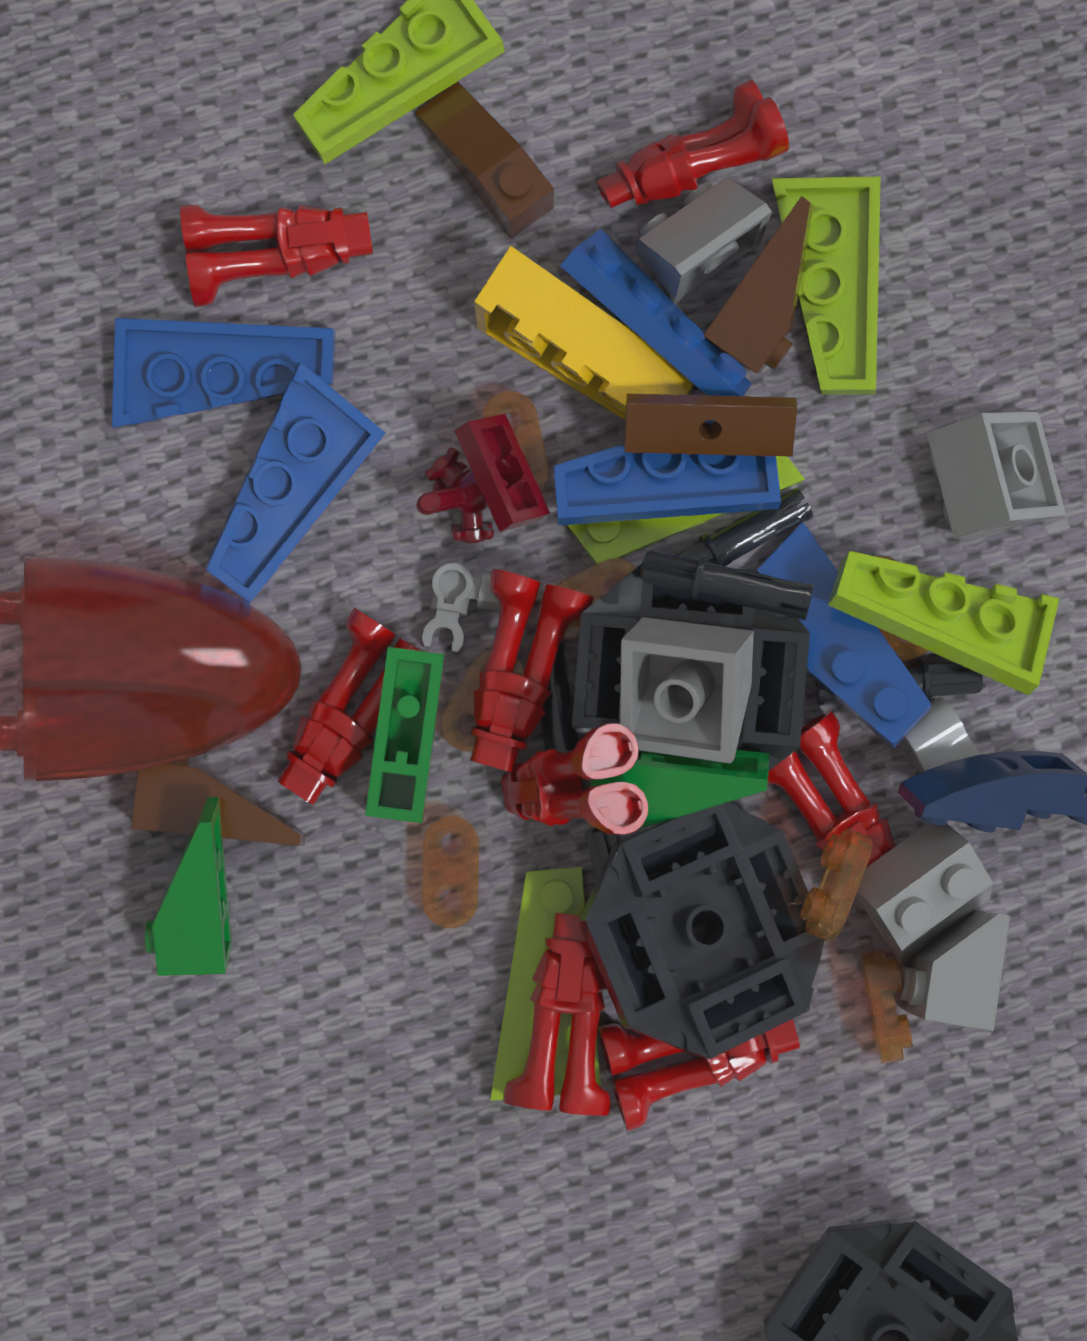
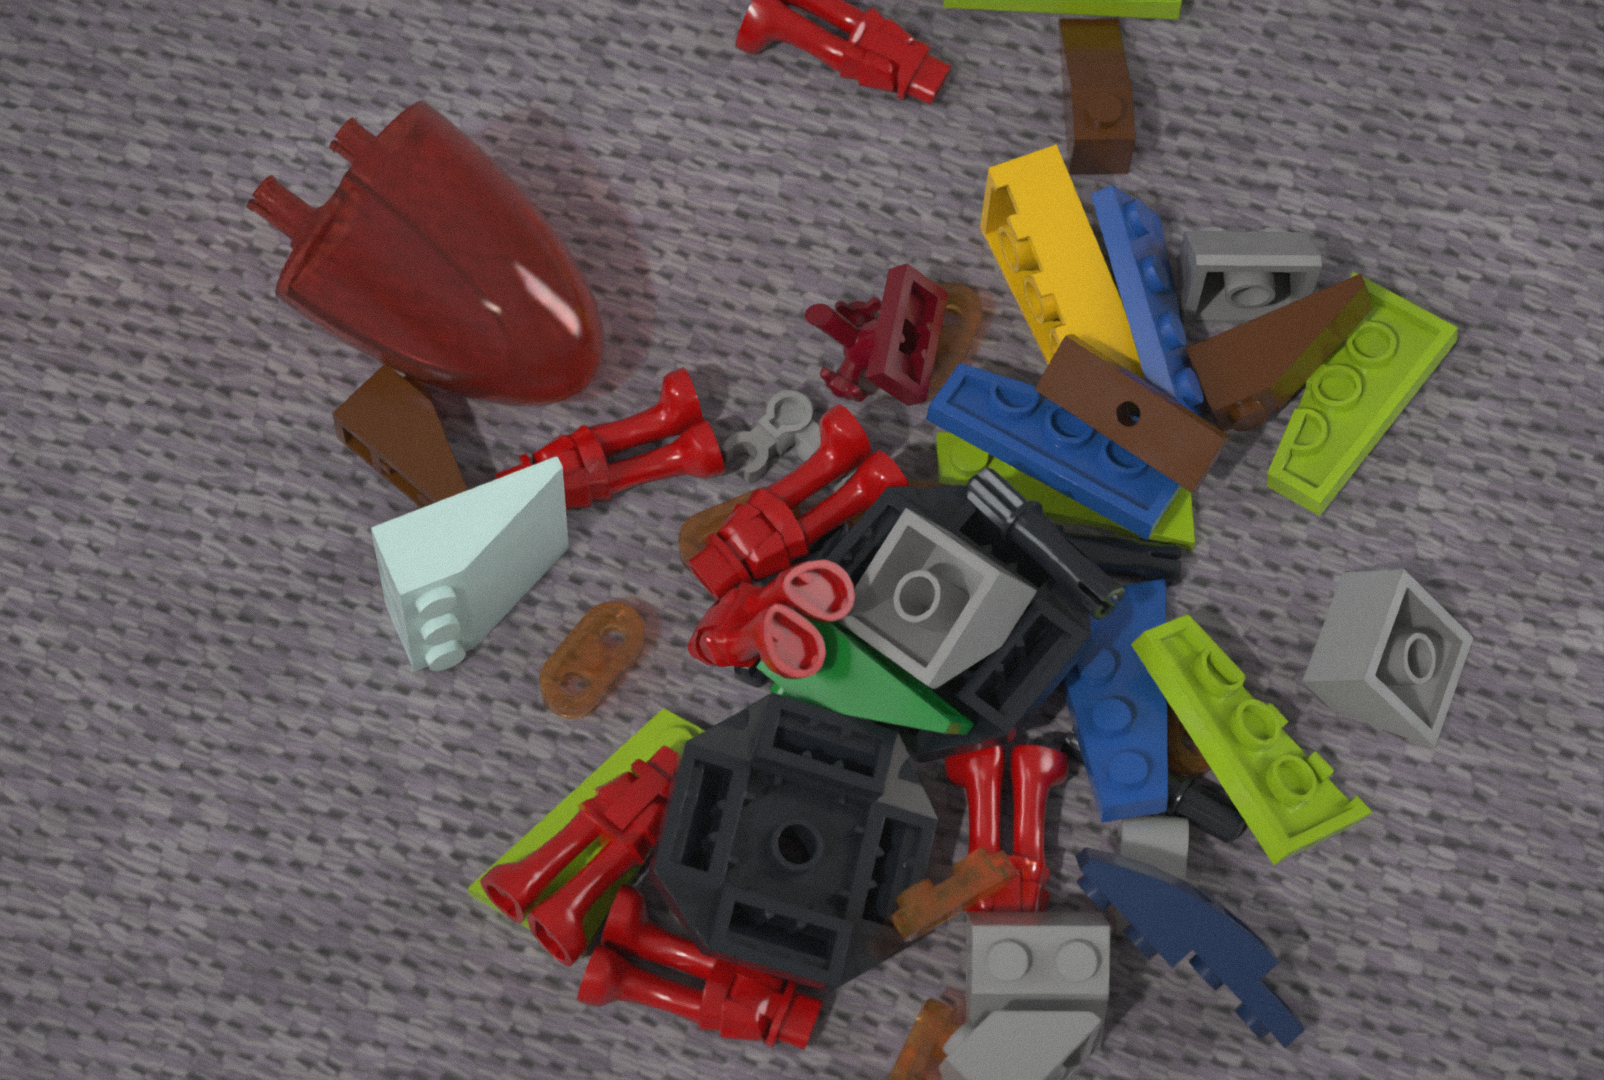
camera: 35 degrees right, 20 degrees down
(193, 916) = (329, 520): green slope -> none
(202, 366) = (710, 98): blue wing -> none
(296, 473) = (725, 229): blue wing -> none
(321, 897) = (469, 561): none -> light aqua slope
(405, 735) = (639, 505): green slope -> none
(677, 161) = (1270, 198): red piece -> none

